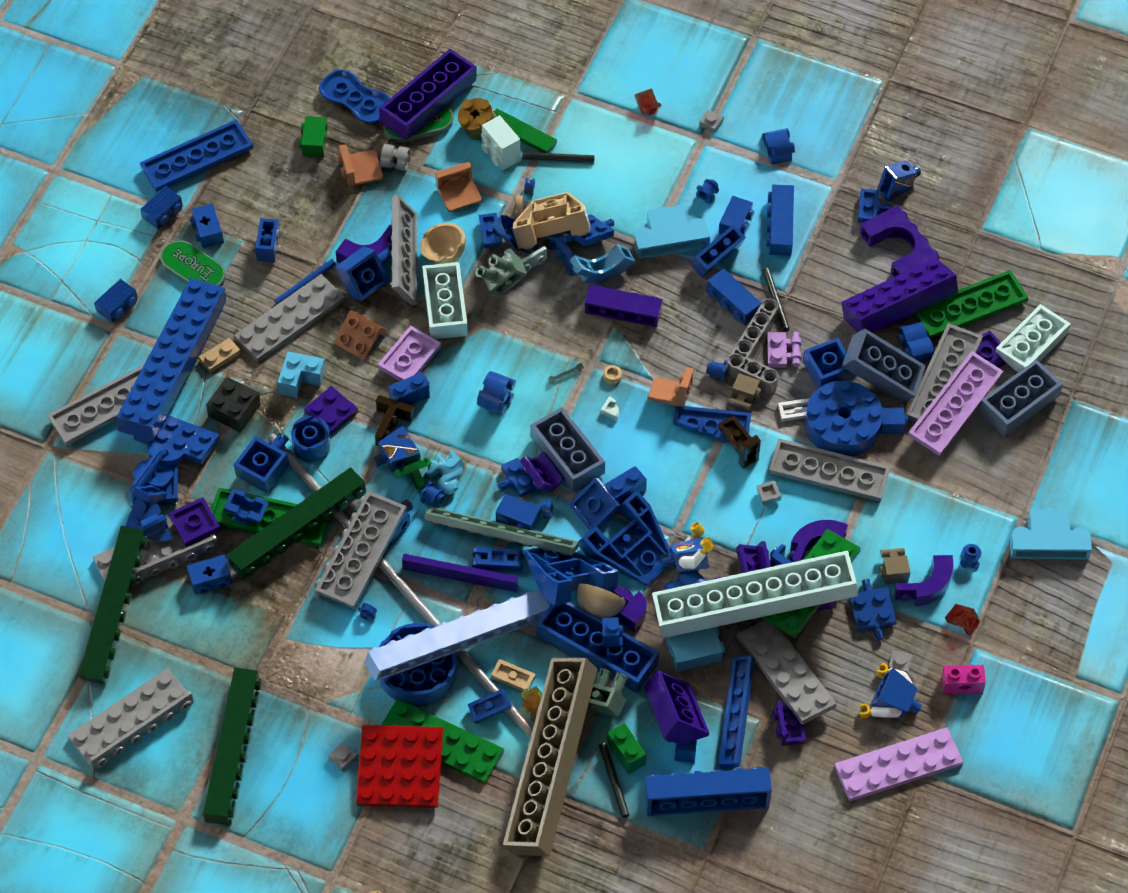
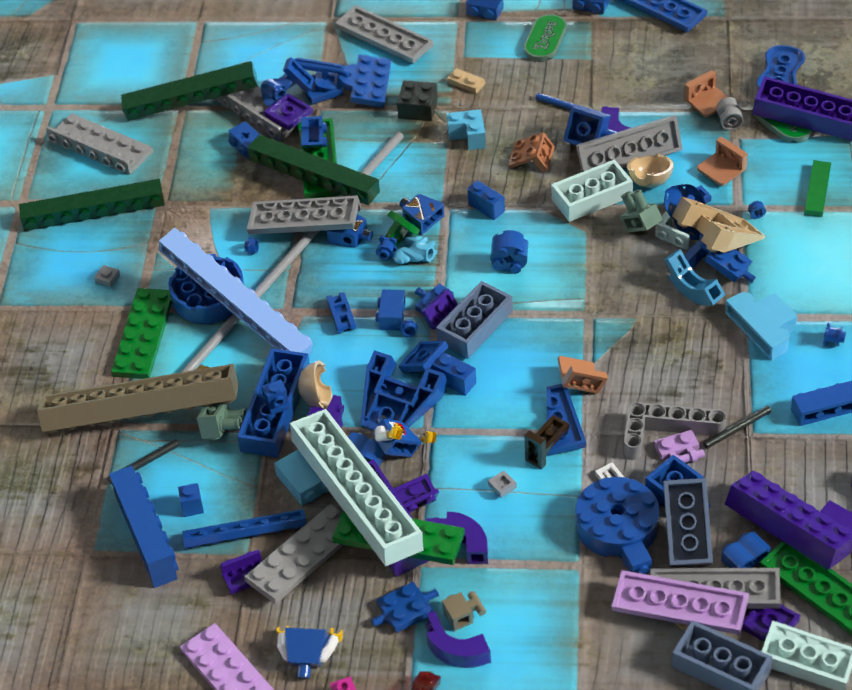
camera: 75 degrees right, 10 degrees down
(171, 359) = (439, 48): blue brick -> none
(207, 225) = (588, 30): blue brick -> none
(262, 462) = (366, 133): blue brick -> none
(267, 240) = (591, 65): blue brick -> none
(289, 318) = (523, 107): light grey plate -> none
(310, 438) = (404, 154): blue brick -> none
(314, 136) = (721, 59): green brick -> none
(332, 408) = (445, 162): dark purple plate -> none
(393, 411) = (452, 197): dark brown bracket -> none
(400, 766) = (105, 311): red plate -> none
(409, 354) = (526, 190): lavender plate -> none
(460, 573) = (314, 291): dark purple tile -> none
(473, 115) = (805, 148): pearl gold brick -> none
(489, 705) = (184, 349): blue plate -> none
(500, 143) = (786, 171): light aqua brick -> none
(507, 532) = (366, 302): sand green plate -> none
(512, 675) = (224, 353): tan plate -> none
(518, 206) = (730, 207): tan tile -> none
(558, 157) = (804, 219): pearl dark grey piece -> none
(562, 574) = (340, 348): blue wedge -> none
(579, 367) = (576, 306): clear smoke hinge -> none
(610, 409) = (542, 342): light aqua tile -> none
(612, 375) = (580, 332): tan tile -> none
(623, 305) = (659, 314): dark purple brick -> none
(626, 748) = (174, 457): green brick -> none
(675, 709) = (220, 474): dark purple slope -> none
(717, 251) = (761, 360): blue brick -> none
(717, 369) = (623, 401): blue brick -> none
(733, 296) = (719, 387): blue brick -> none
(737, 213) = (813, 365): blue brick -> none
(744, 392) = (611, 431): dark tan brick -> none
(777, 556) = (428, 510): blue bracket -> none
(829, 470) = (552, 526): light grey plate -> none
(900, 661) = (353, 648): light grey plate -> none
(970, 555) = (503, 673): blue brick -> none

